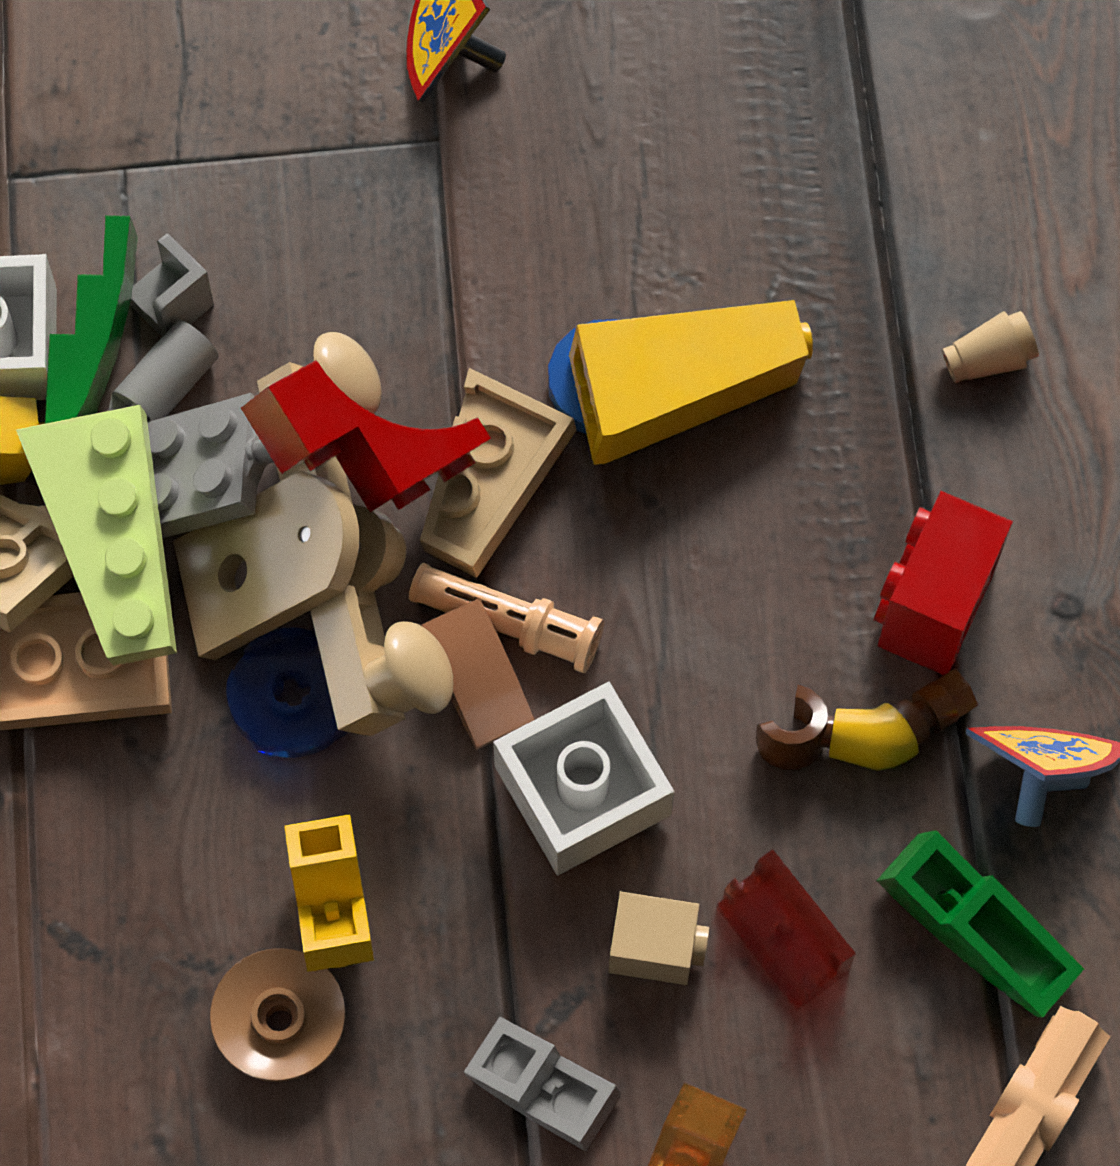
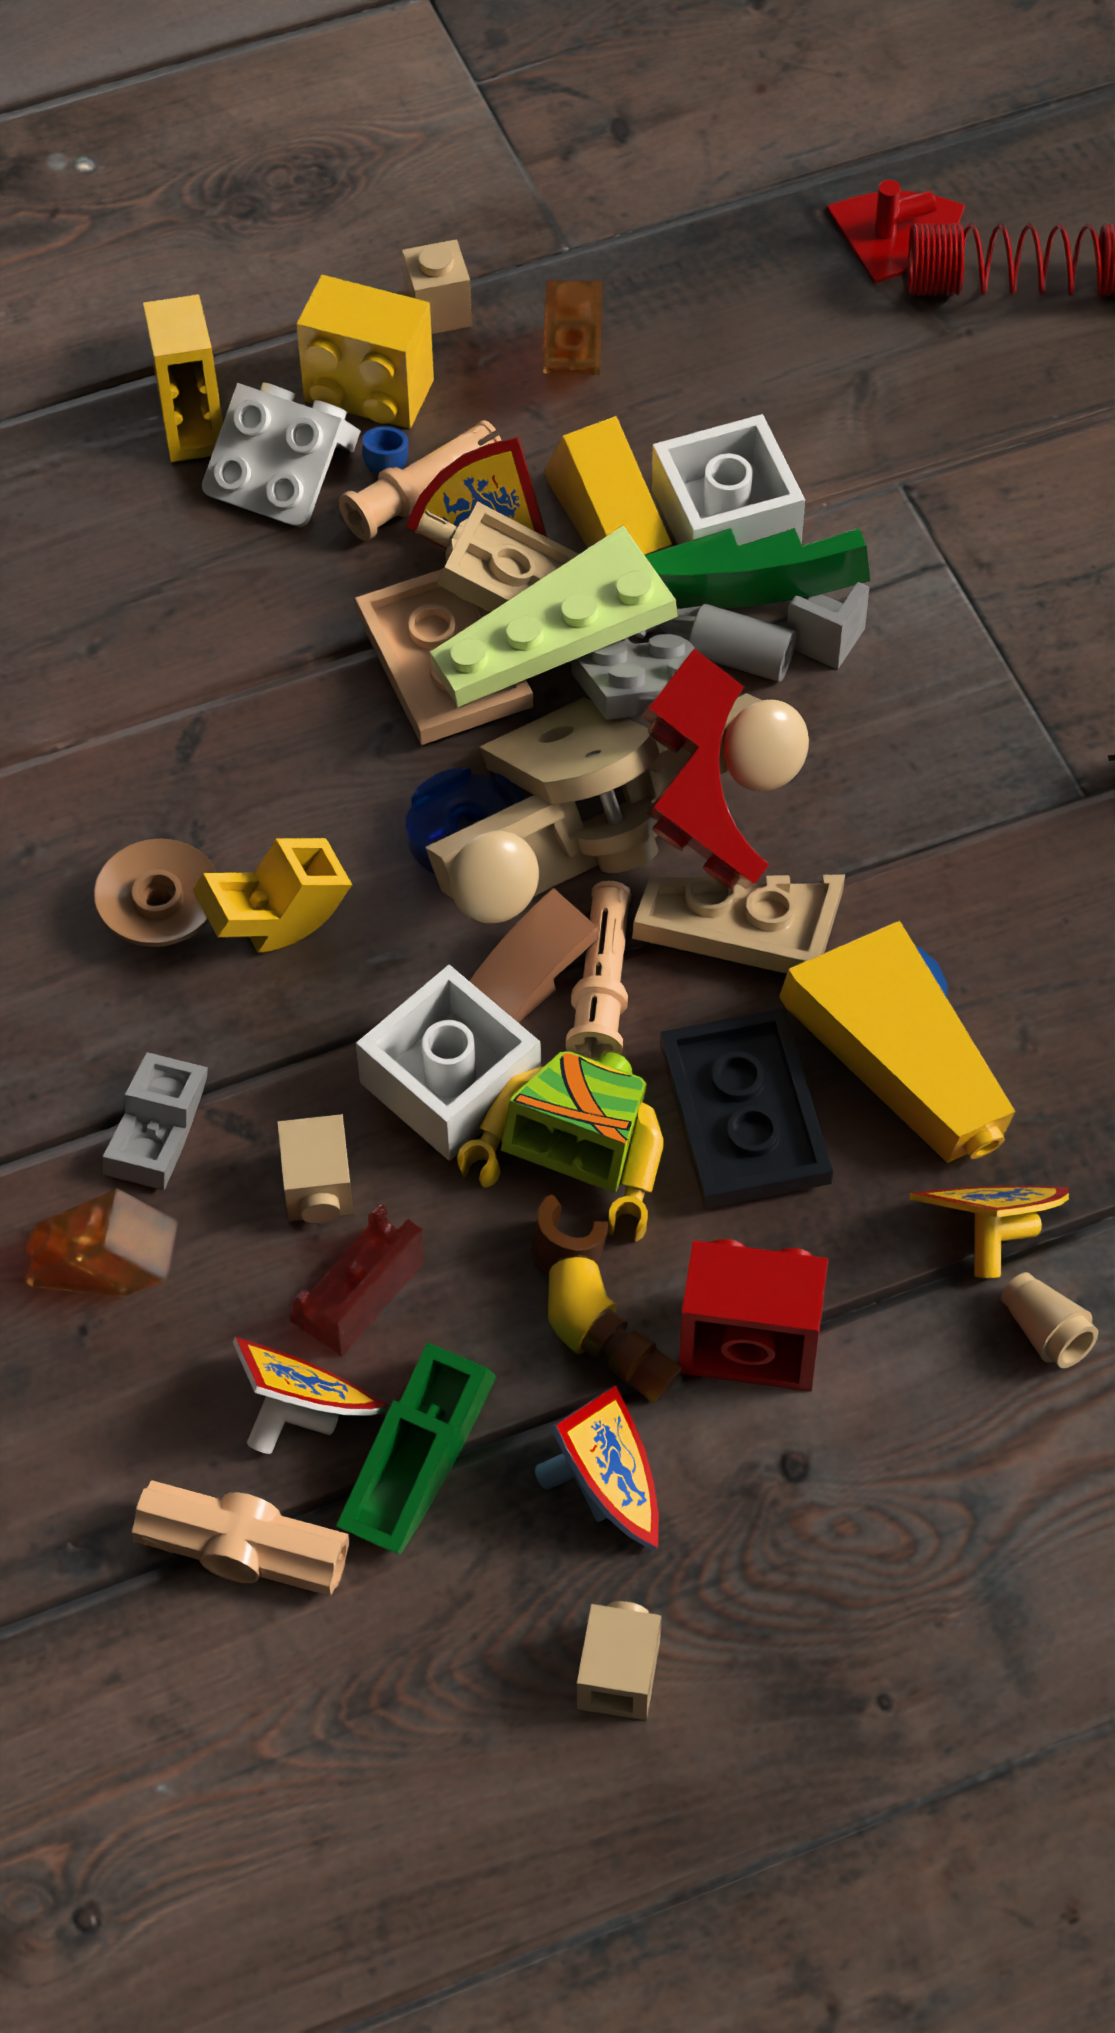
camera: 75 degrees right, 10 degrees down
(688, 675) = (580, 1122): none -> torso
(699, 532) = (745, 1108): none -> black plate
(876, 344) = (1000, 1215): none -> shield
(900, 1011) = (298, 1394): none -> shield

